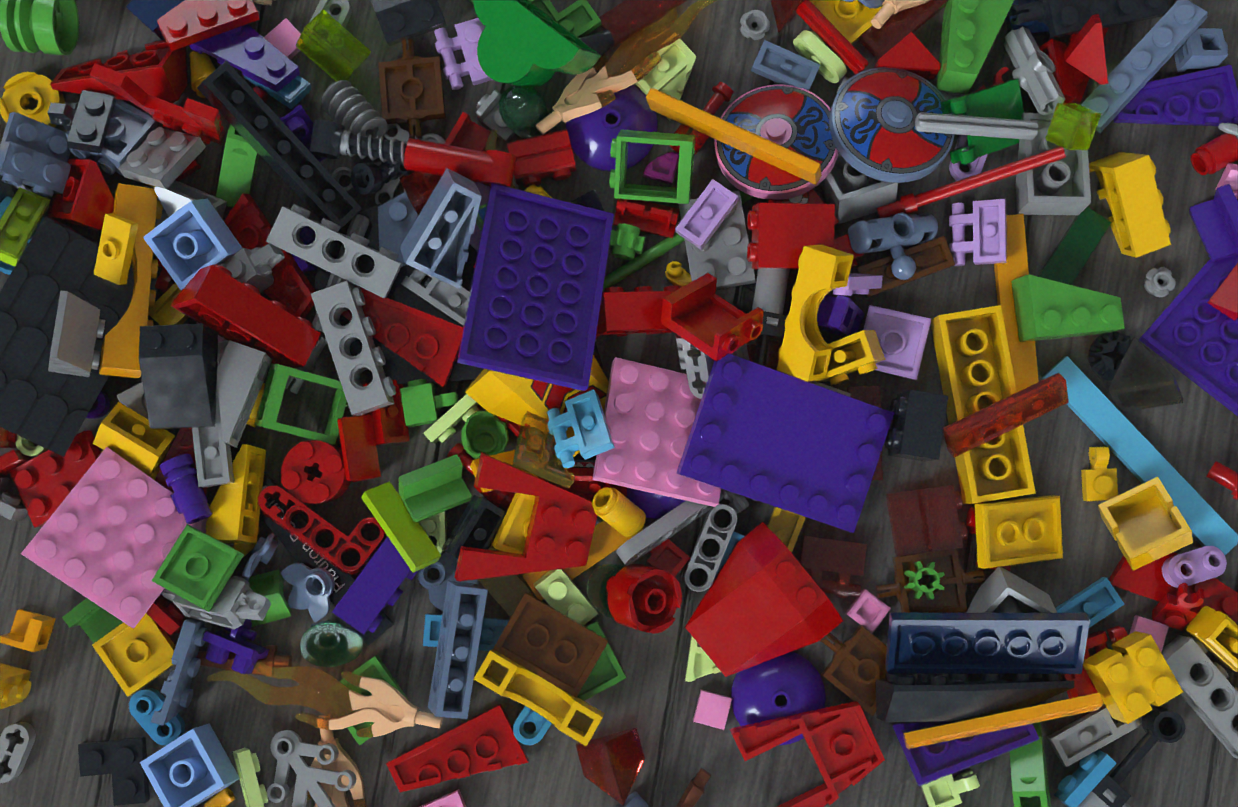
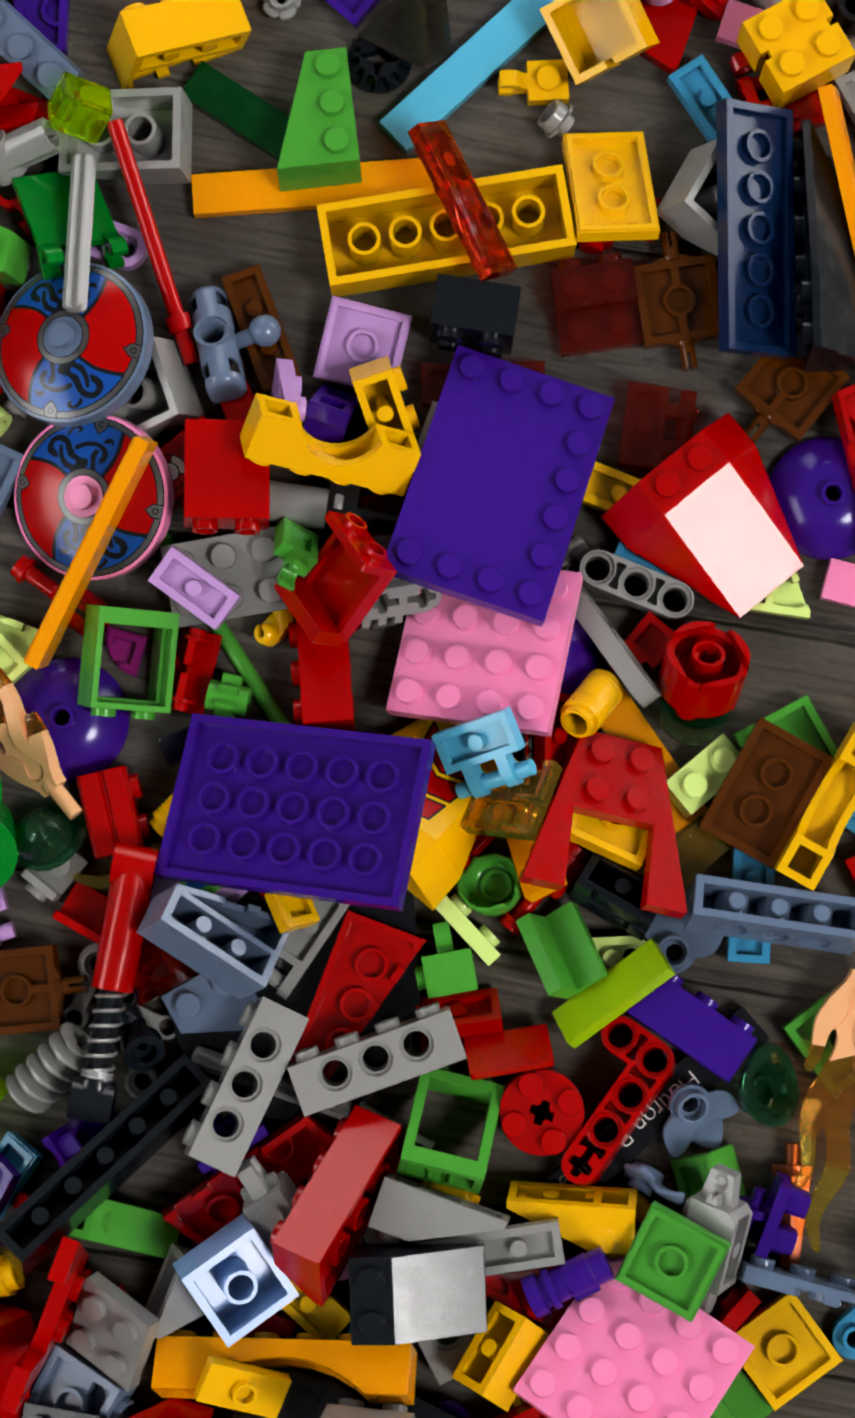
camera: 90 degrees left, 0 degrees up
(460, 285) = (291, 912): none -> yellow tile
(735, 290) = (297, 549): none -> bright green plate
(868, 610) = (714, 381): bright pink tile -> none
(930, 586) = (683, 299): bright green gear -> none
(989, 232) = (216, 219): lavender plate -> none
(1071, 491) = (556, 118): none -> light grey plate

